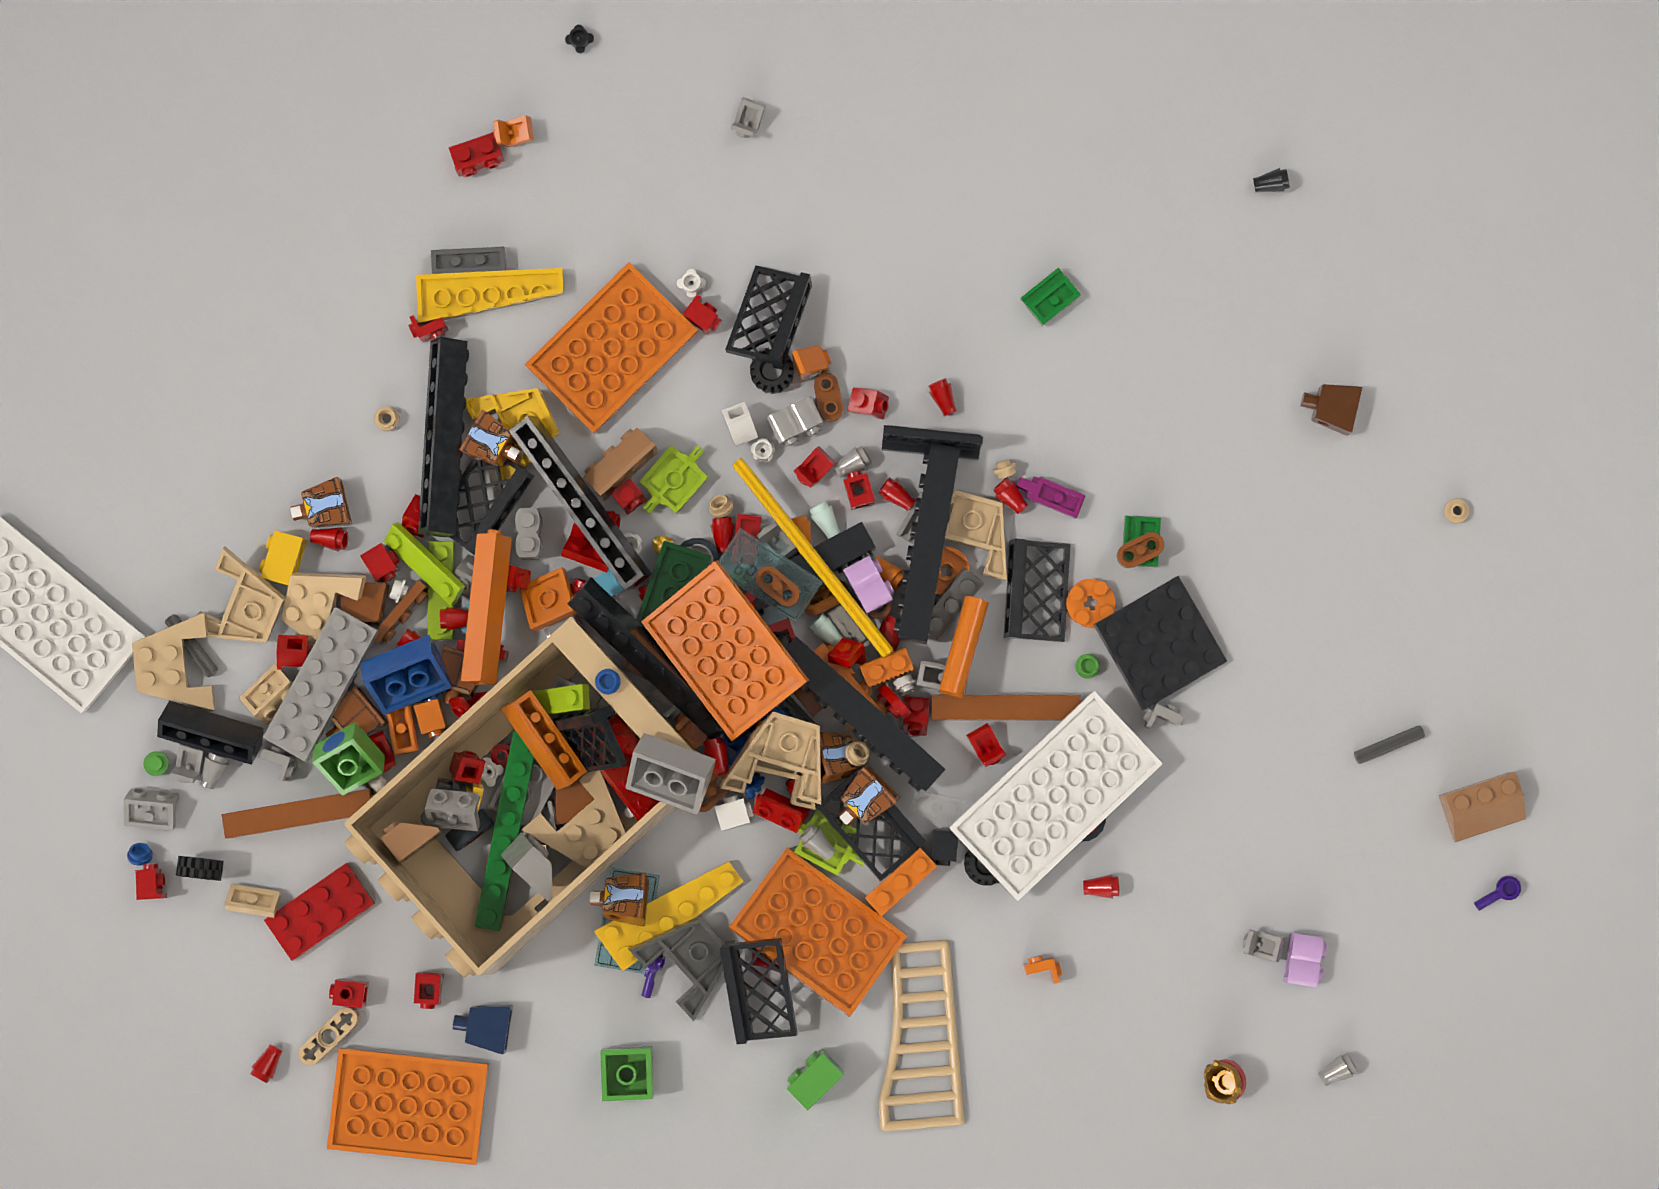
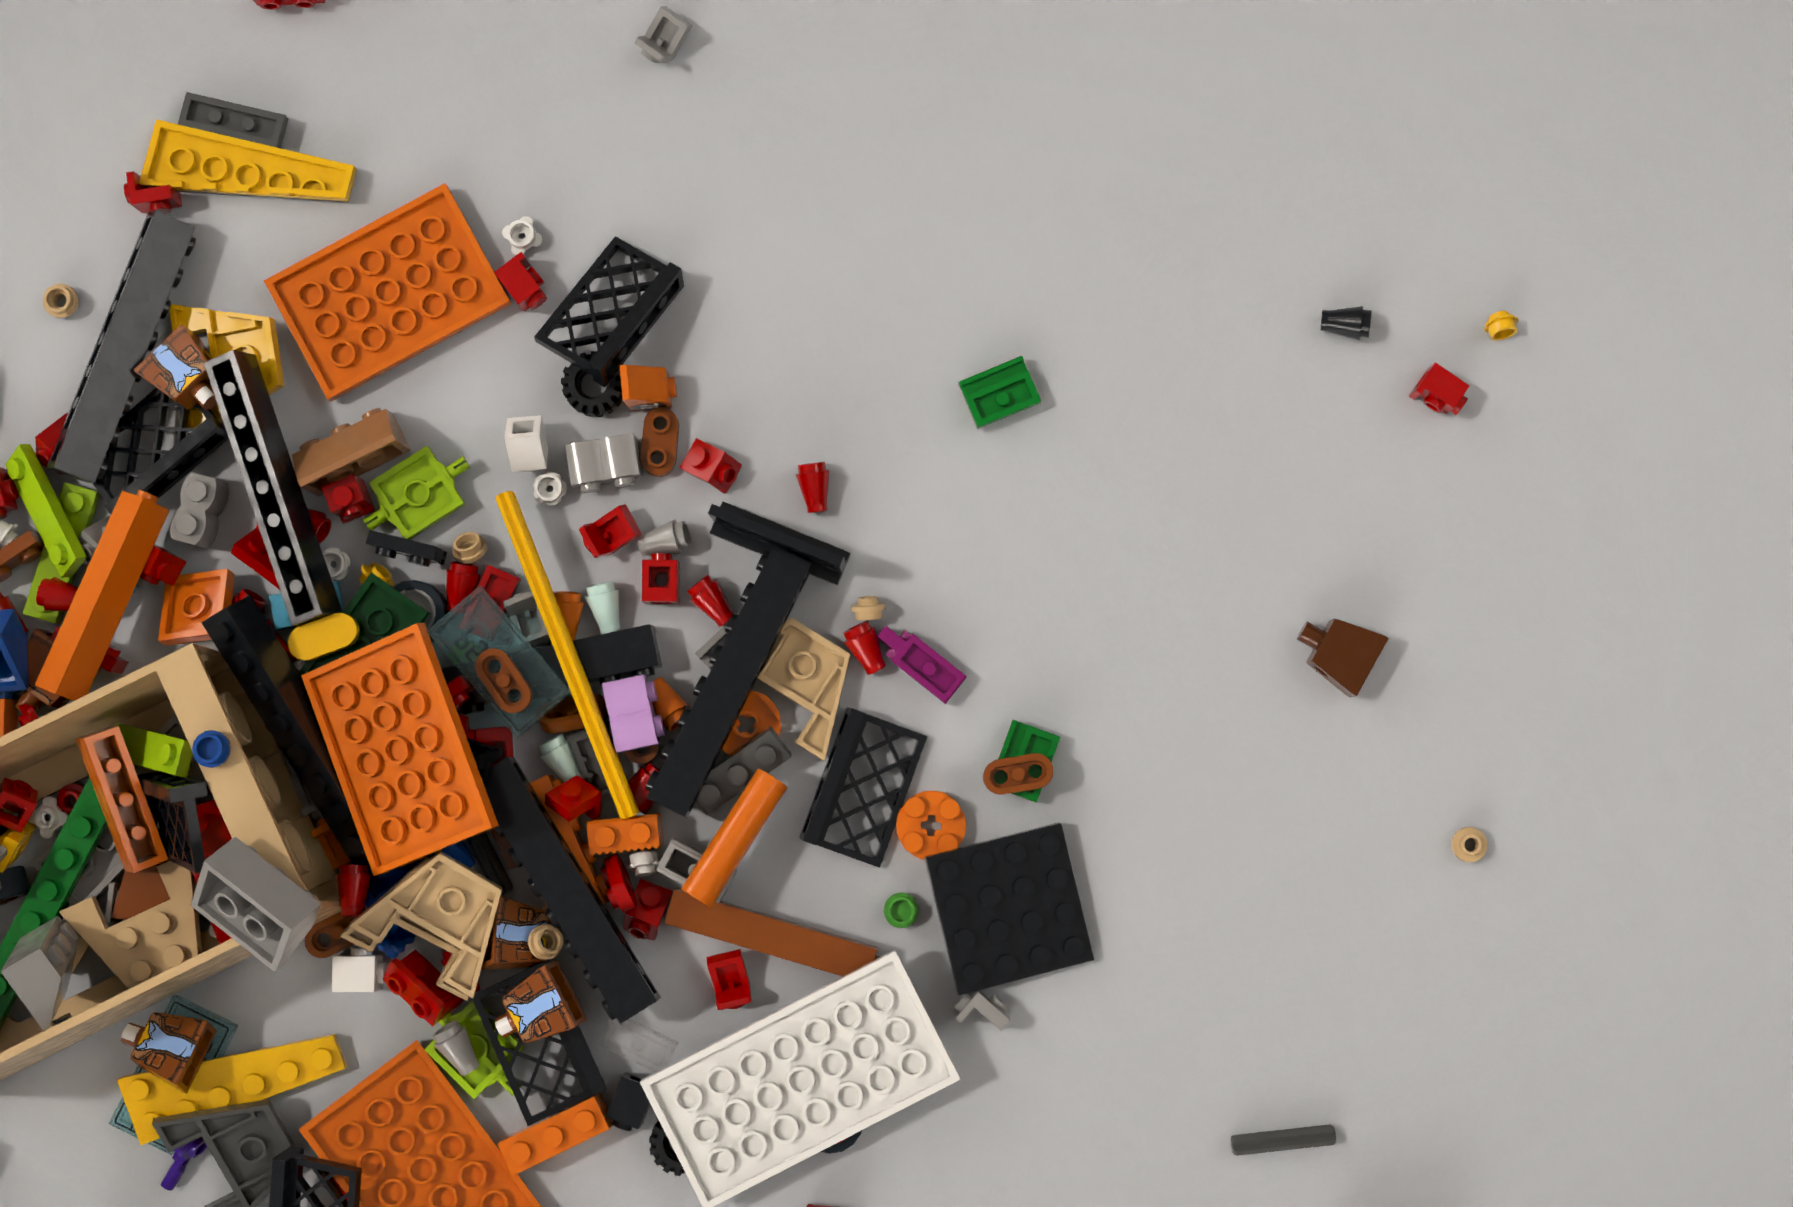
camera: 20 degrees right, 0 degrees up
(646, 592) = (323, 637): none -> yellow tile
(687, 518) = (418, 552): none -> black plate
(1348, 210) = (1441, 390): none -> red brick
(1377, 154) = (1501, 325): none -> yellow plate

